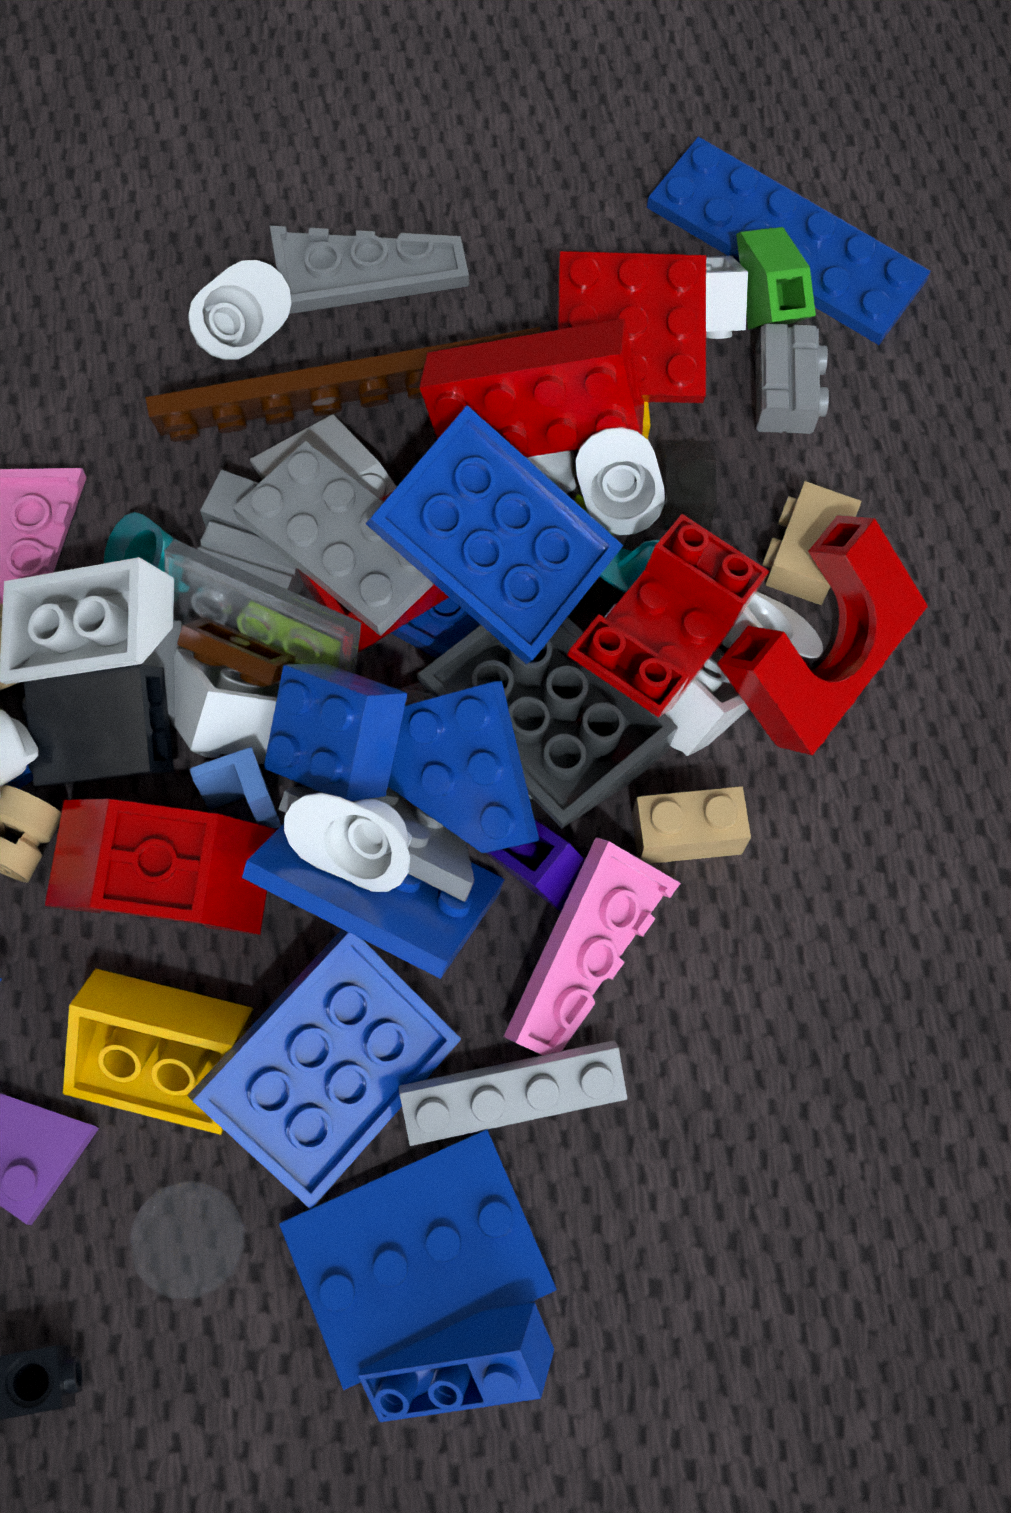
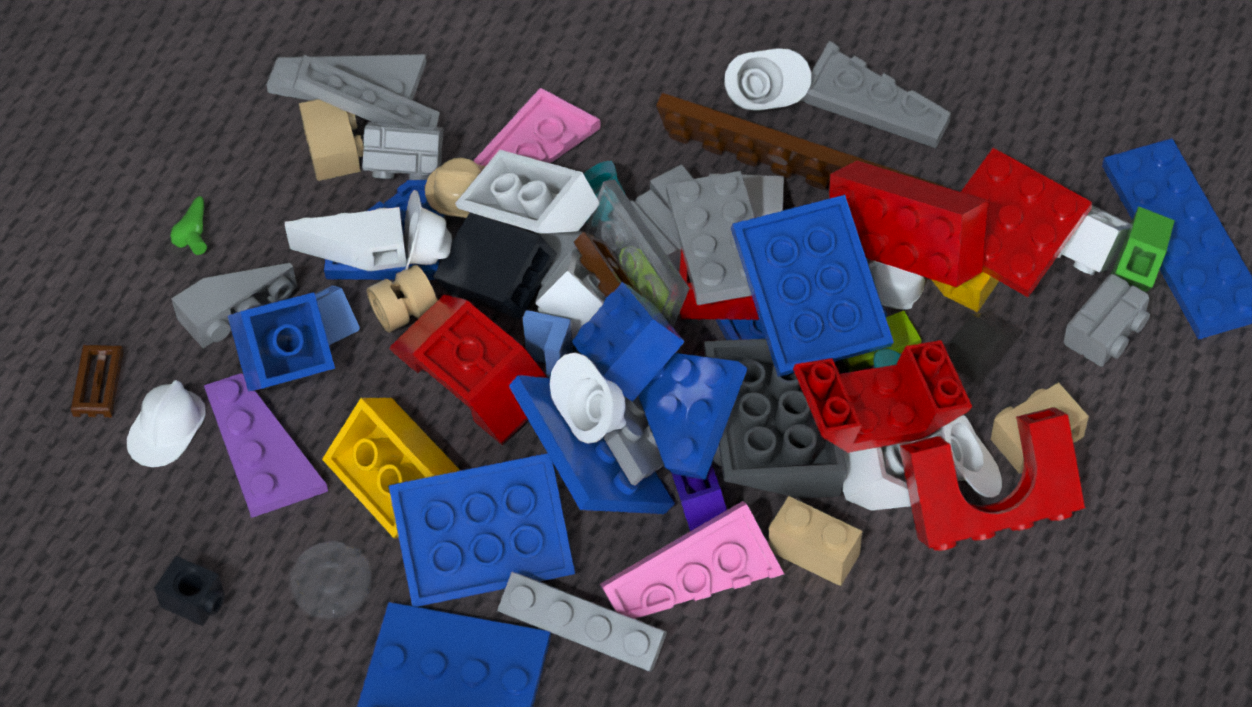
camera: 40 degrees right, 15 degrees down
(620, 480) = (929, 306): white piece -> none

